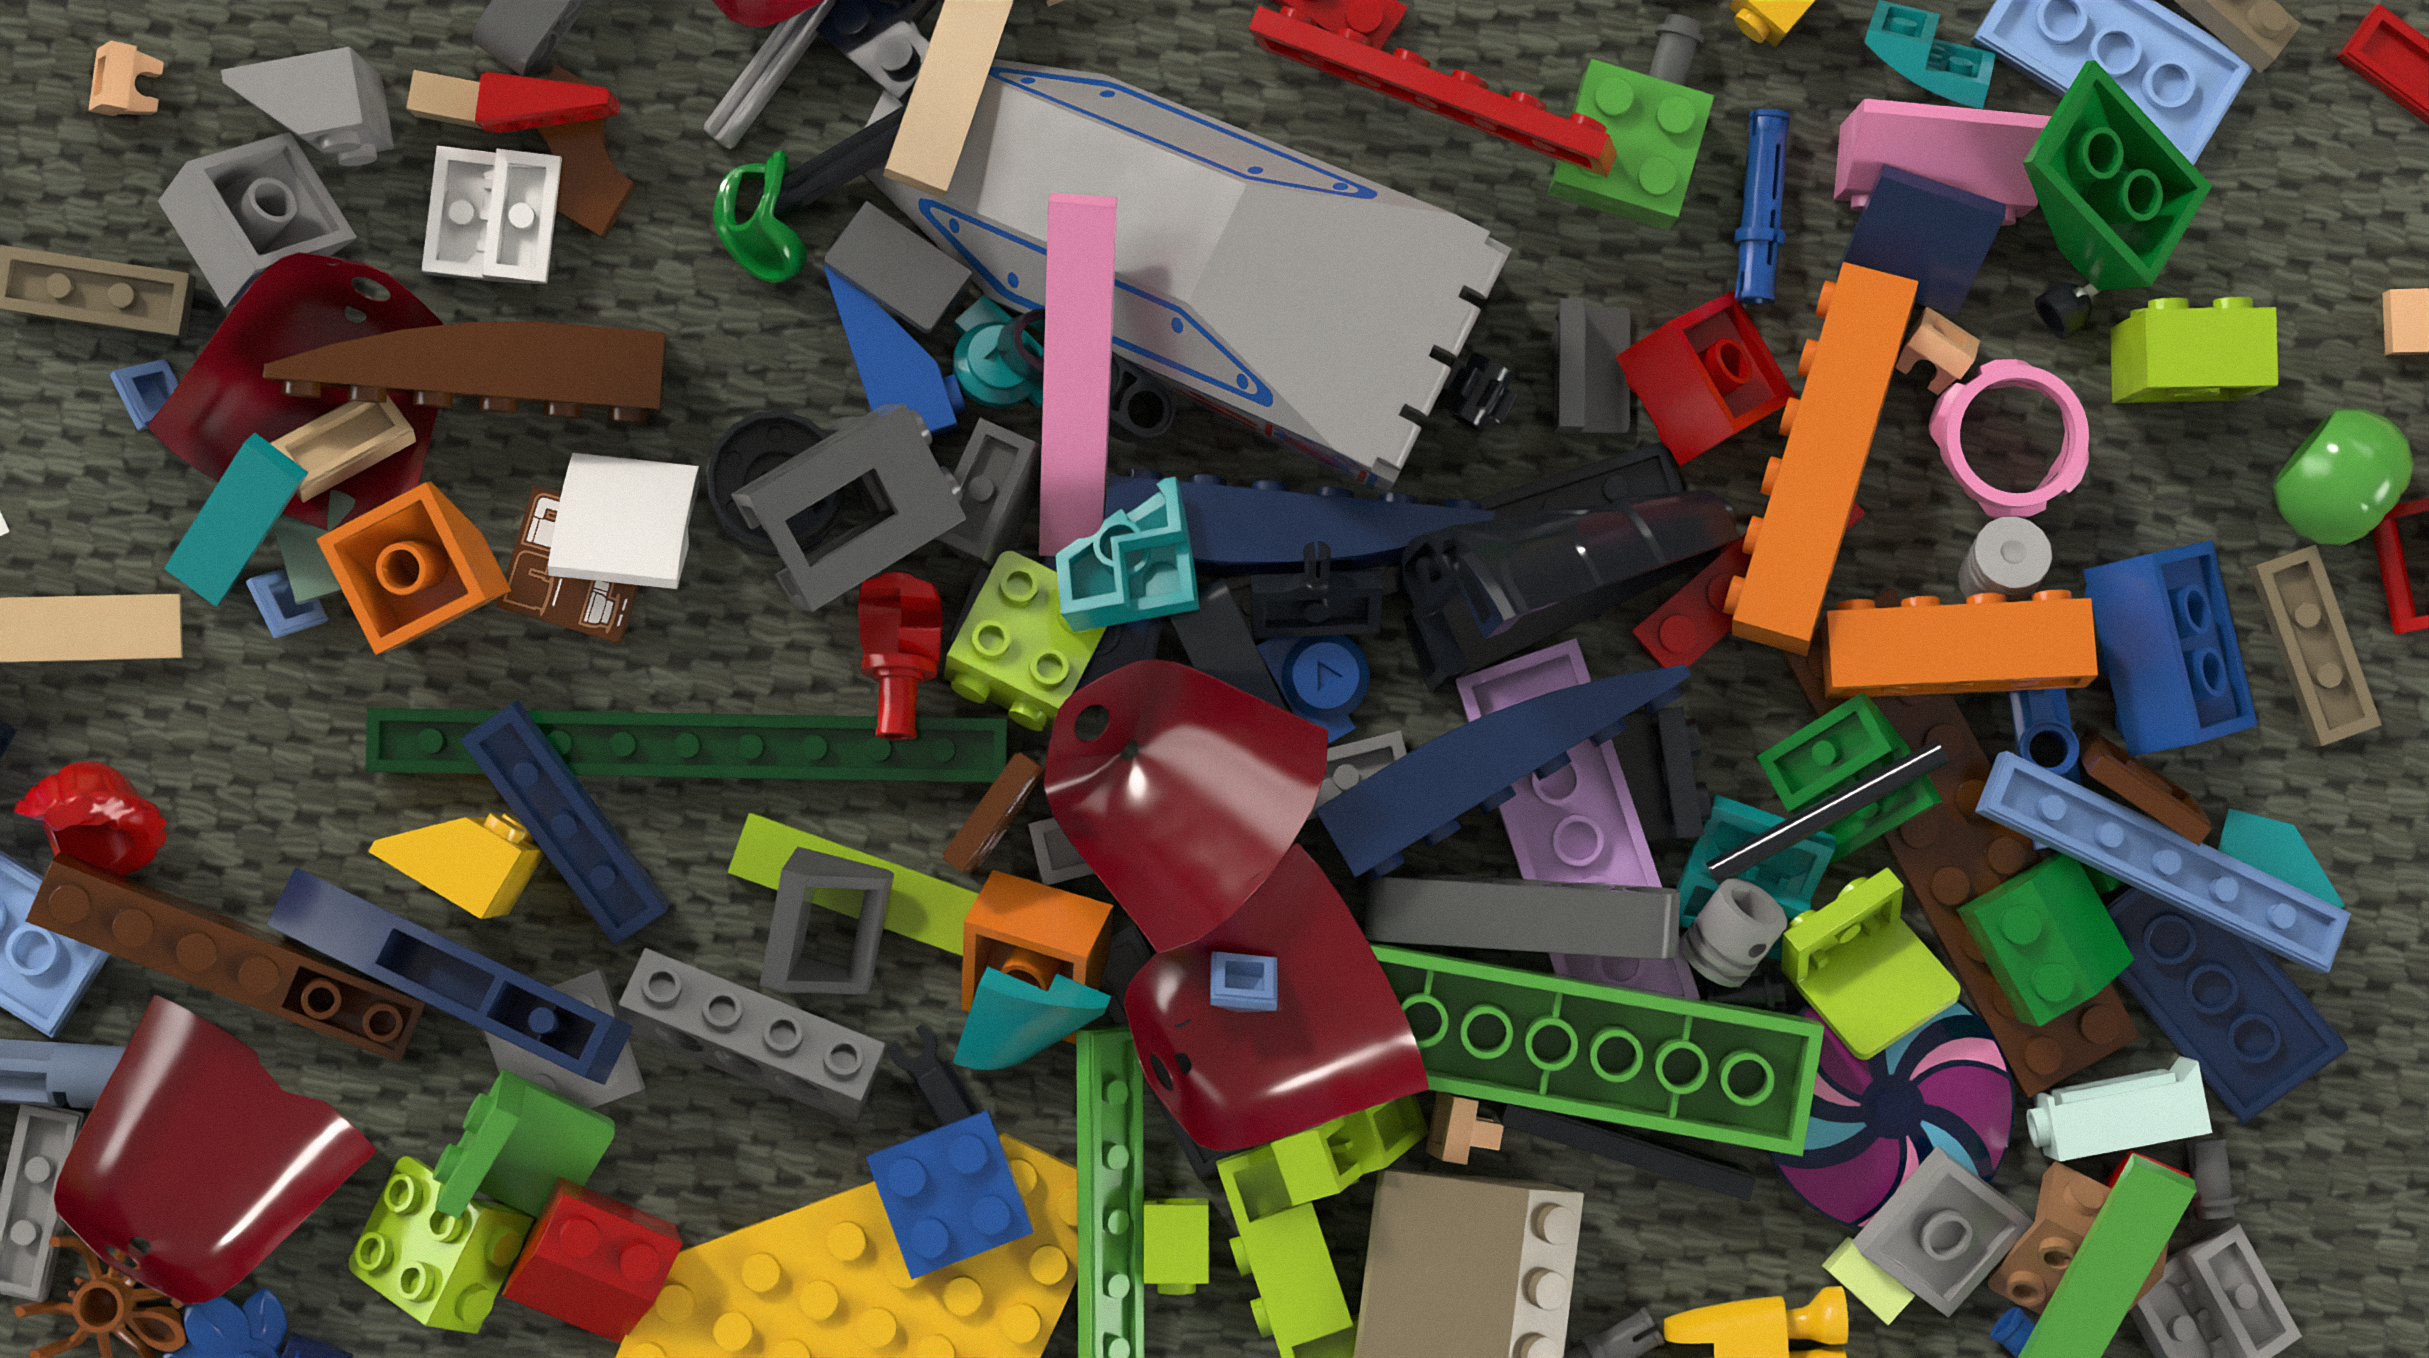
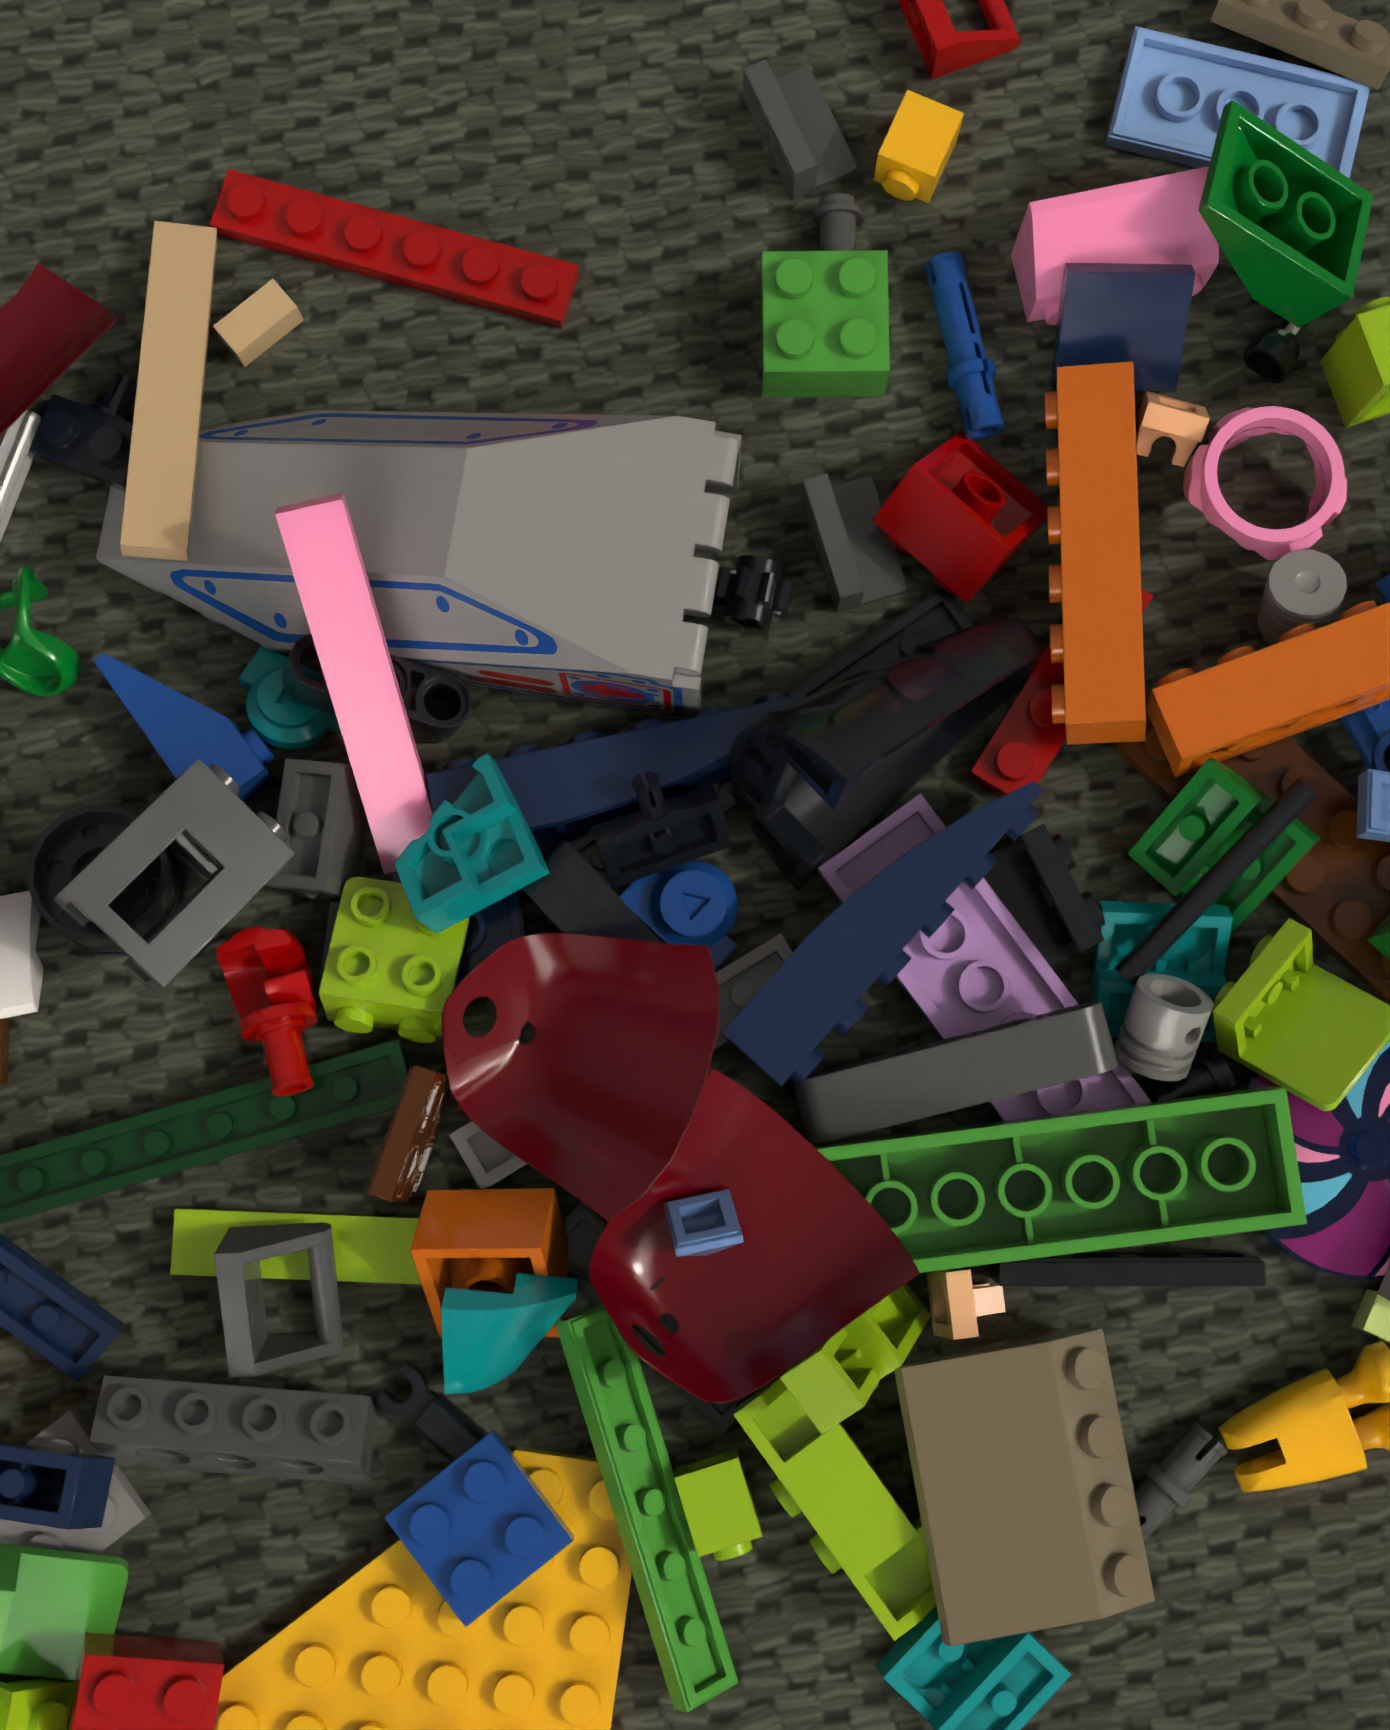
camera: 15 degrees left, 5 degrees down
(837, 165) = (78, 571): black axle -> none
(898, 268) = (168, 642): dark grey panel -> none
(1456, 97) = (648, 322): red plate -> none
(1907, 44) = (1056, 153): teal slope -> none

